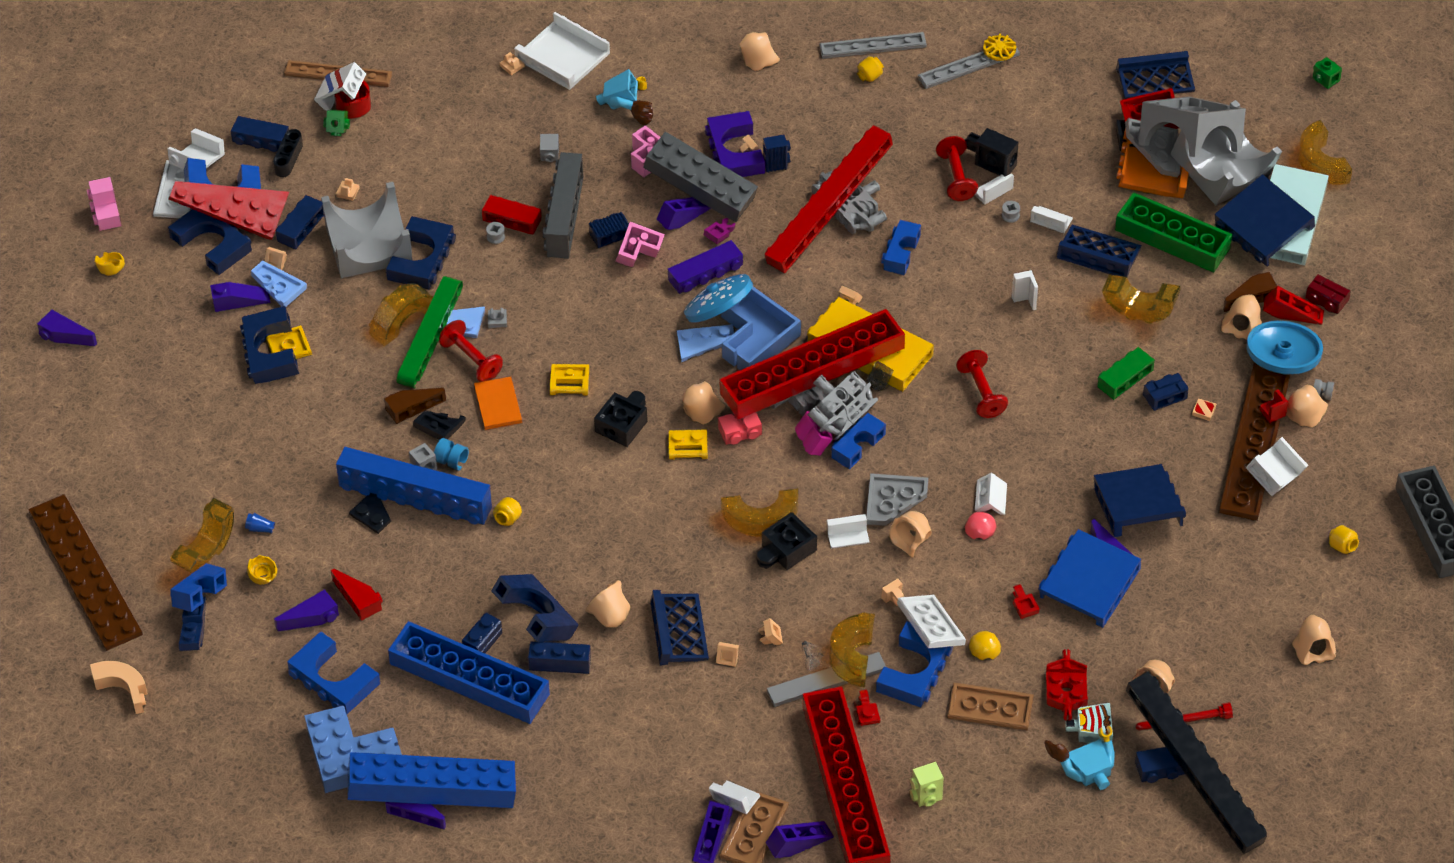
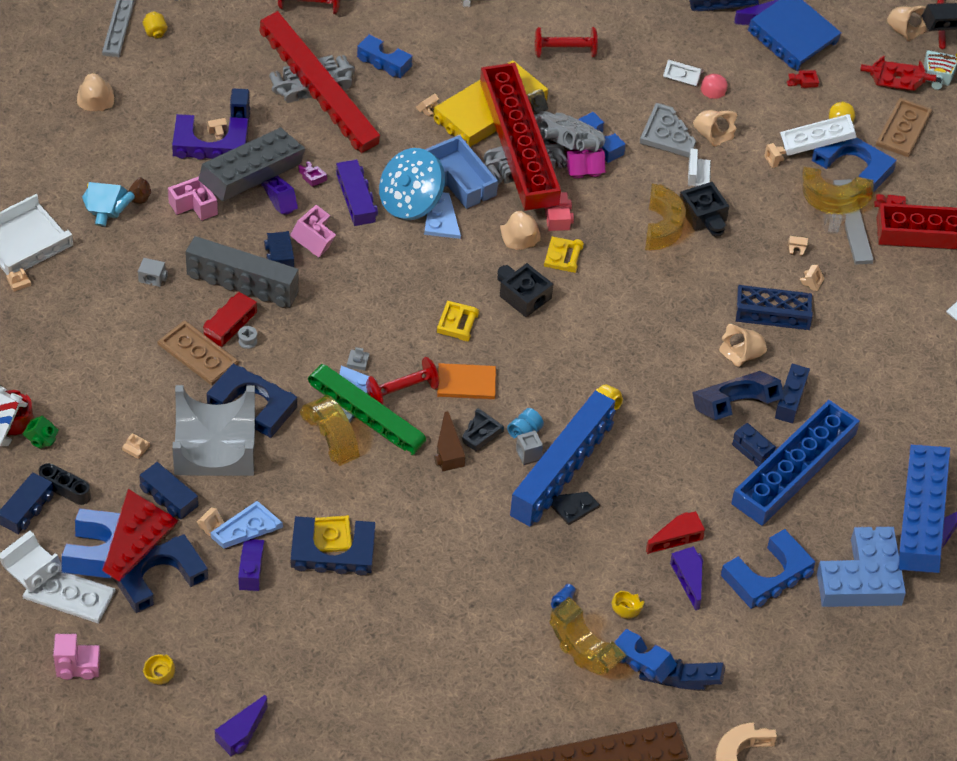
camera: 80 degrees left, 0 degrees up
(466, 206) = (197, 352): none -> medium nougat tile

